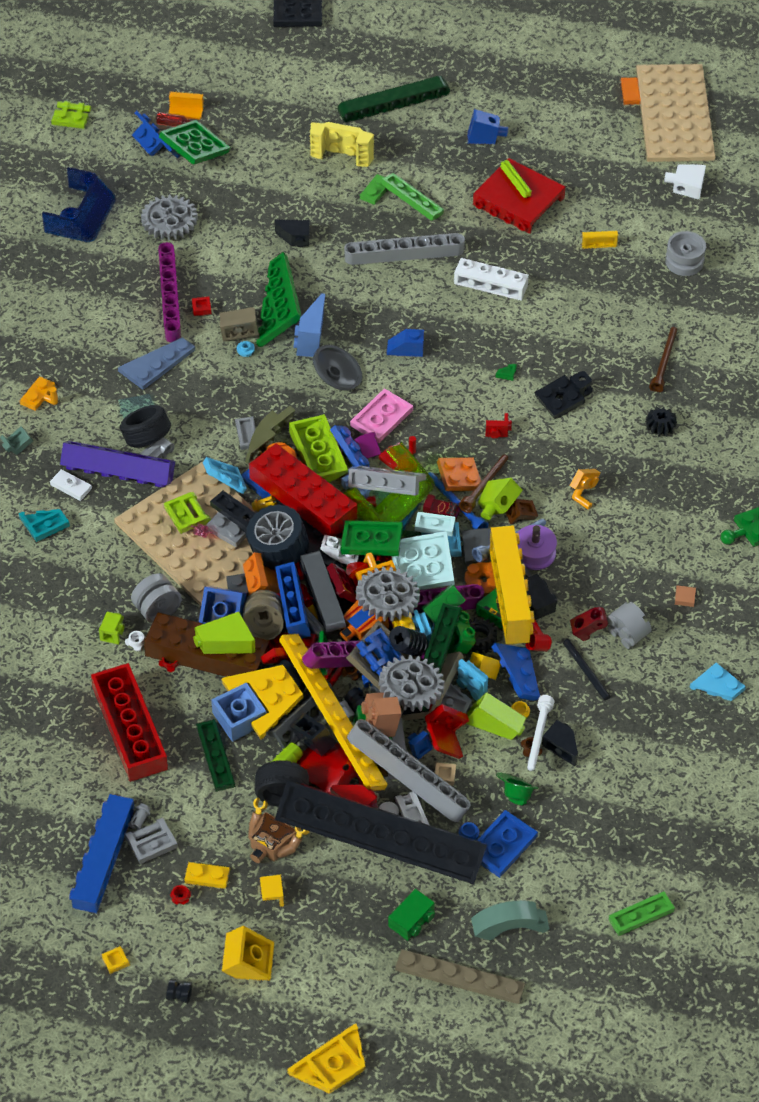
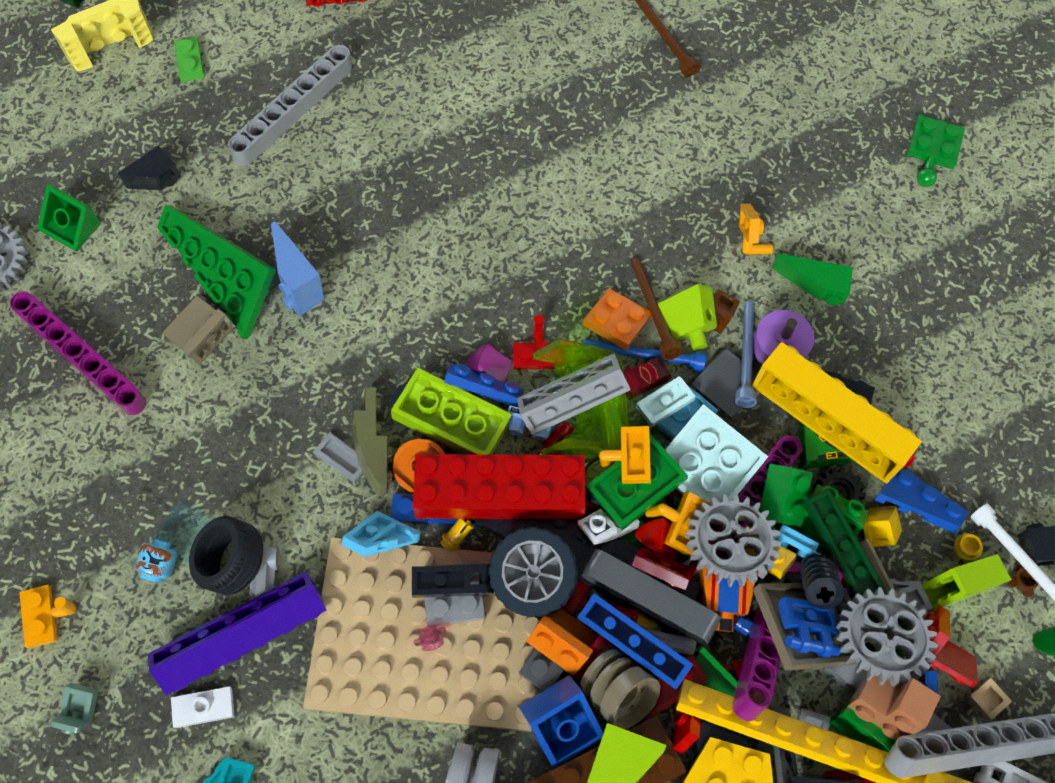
camera: 45 degrees left, 15 degrees up
(112, 408) = (156, 561): none -> medium azure head
(153, 365) = (148, 458): sand blue wing -> none
(182, 515) = (386, 636): lime plate -> none
(201, 306) = (132, 341): red plate -> none
(228, 225) = (66, 218): none -> green slope
(245, 348) = (240, 358): medium azure plate -> none
(337, 367) = (367, 298): dark grey dish -> none
(354, 698) = (814, 695): black wheel -> none
(379, 522) = (633, 455): none -> light orange plate
(382, 415) = (466, 315): bright pink plate -> none
(407, 343) = (407, 210): blue slope -> none
(412, 196) = (239, 40): bright green plate -> none
(472, 678) = (905, 556): medium azure piece -> none
(478, 570) = (766, 435): orange plate -> none
(491, 279) = (415, 72): white brick -> none
(498, 428) = (600, 235): red bracket -> none
(507, 372) = (536, 164): green tile -> none
(572, 392) = (621, 135): black plate -> none
(586, 669) = (969, 437): black bar -> none
(588, 623) = (931, 384): dark red leg -> none
(598, 539) = (819, 278): none -> green slope
(628, 624) = (964, 352): light grey brick -> none
(661, 421) = (738, 102): black gear -> none
(685, 596) = (959, 273): nougat tile -> none

